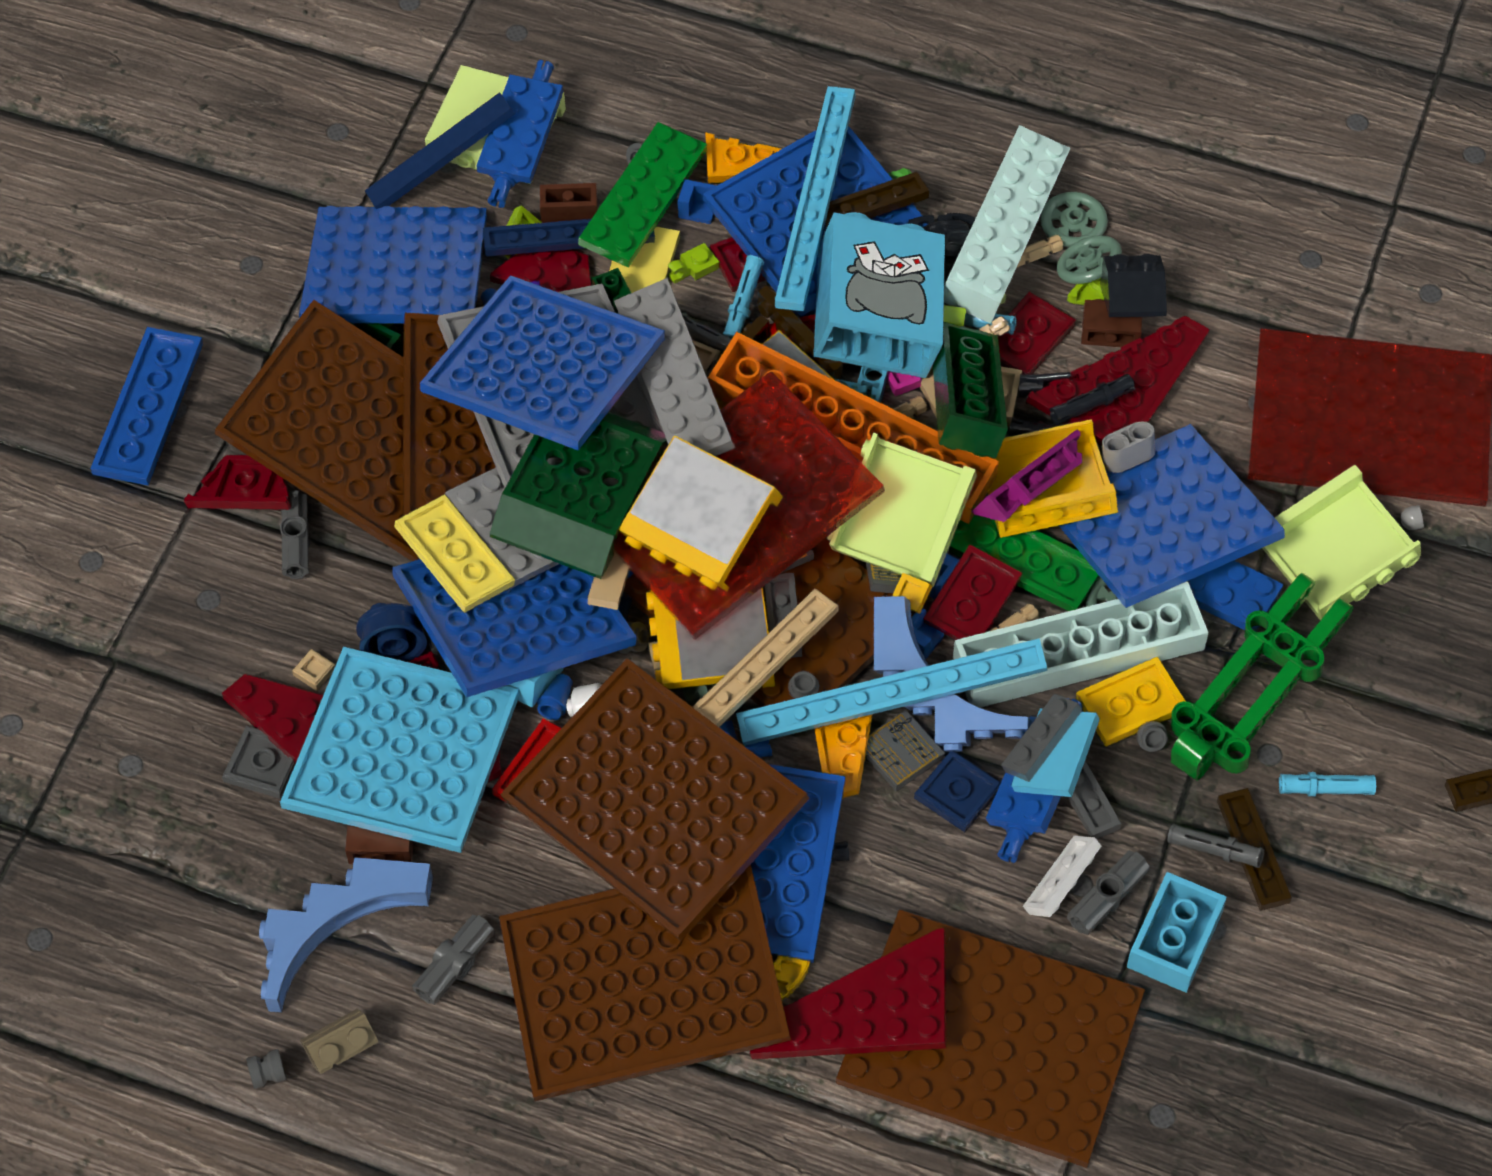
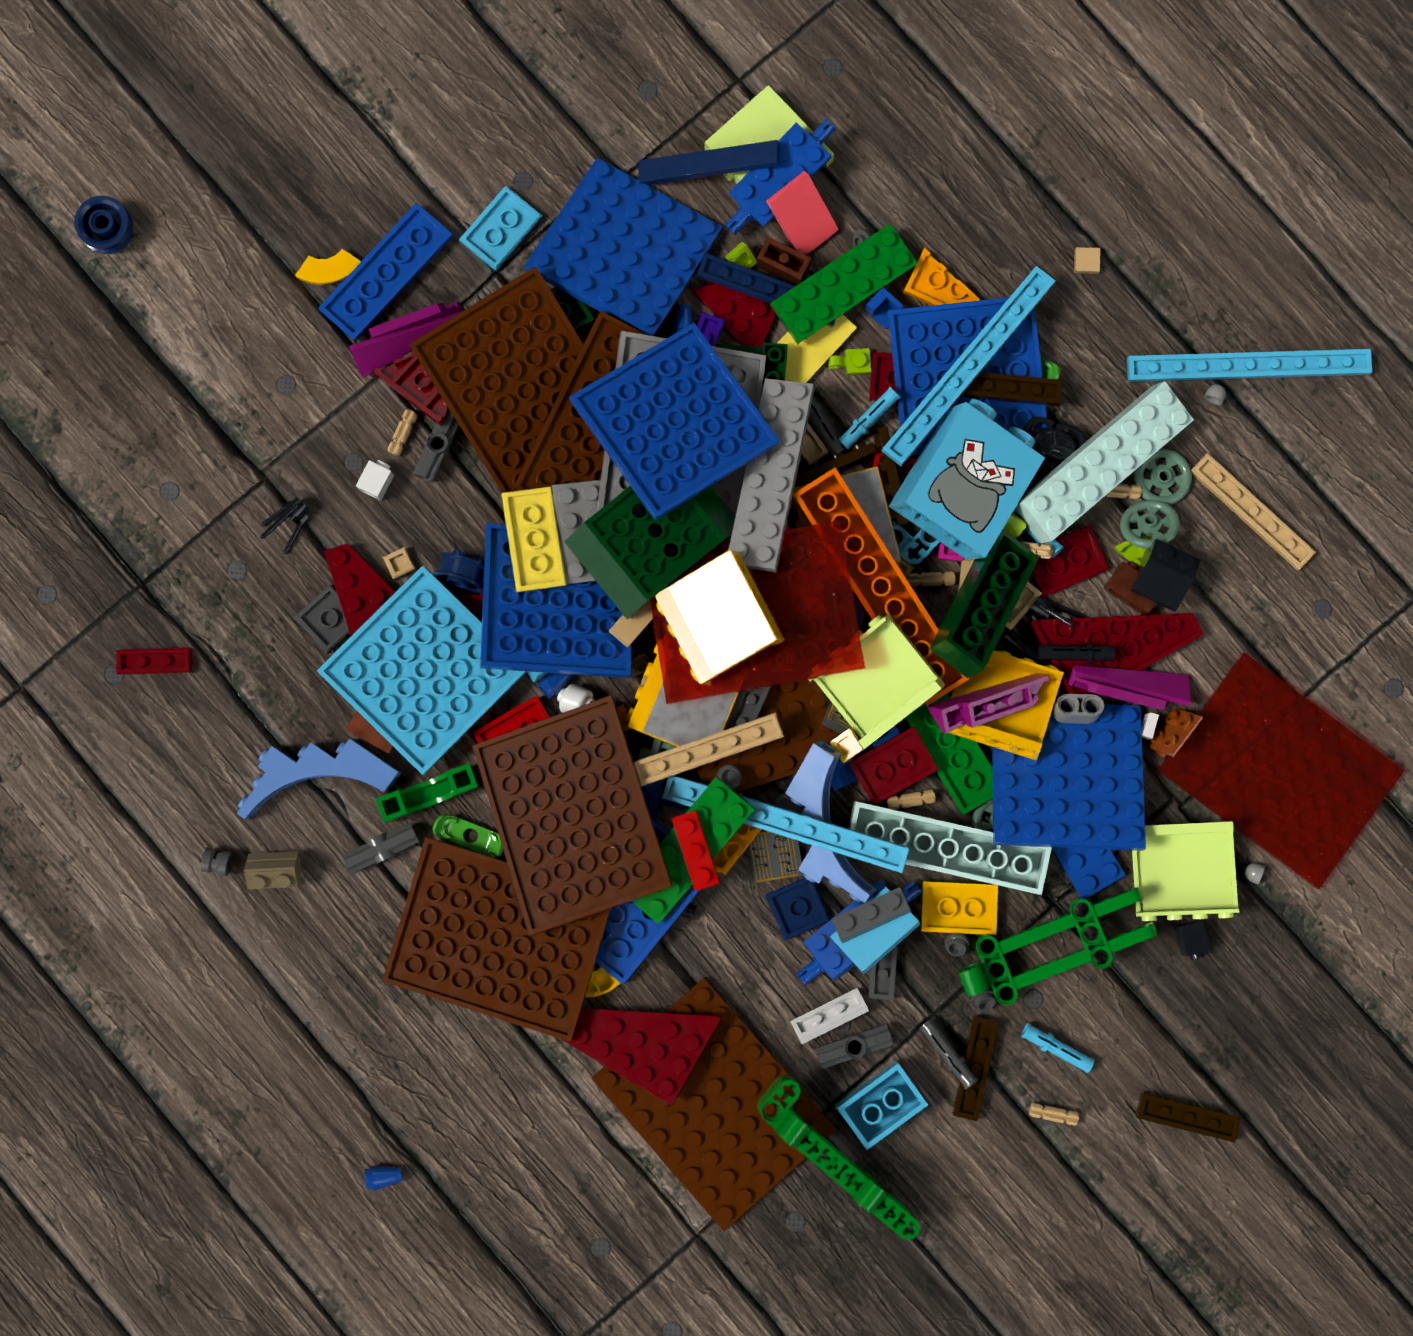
camera: 25 degrees right, 25 degrees up
(79, 435) = (327, 270): none -> yellow tile
(80, 901) = (154, 661): none -> dark red tile
(166, 673) = (295, 511): none -> black plant
(189, 461) = (393, 338): none -> magenta wedge
(242, 599) = (375, 479): none -> white brick
(248, 544) = (402, 432): none -> tan axle
(251, 314) = (501, 228): none -> medium azure tile
(454, 895) = (427, 794): none -> green arch
(525, 897) = (453, 829): none -> bright green piece
(562, 150) = (802, 214): none -> coral tile
(808, 756) = (721, 815): none -> green plate
(811, 756) = (695, 850): none -> red plate
(874, 75) = (1087, 260): none -> tan tile
(1077, 127) = (1215, 394): none -> light grey hinge
(1093, 87) = (1249, 365): none -> medium azure plate
(1173, 407) = (1134, 686): none -> magenta wedge
(1183, 208) = (1252, 511): none -> tan tile
(1211, 433) = (1148, 725): none -> white tile
(1213, 1020) = (859, 1185): none -> green beam
(1216, 776) = (984, 1001): none -> dark grey plate
(1240, 428) = (1173, 732): none -> dark orange hinge
(1368, 852) = (1054, 1114): none -> tan axle
(1393, 607) = (1192, 939): none -> black brick

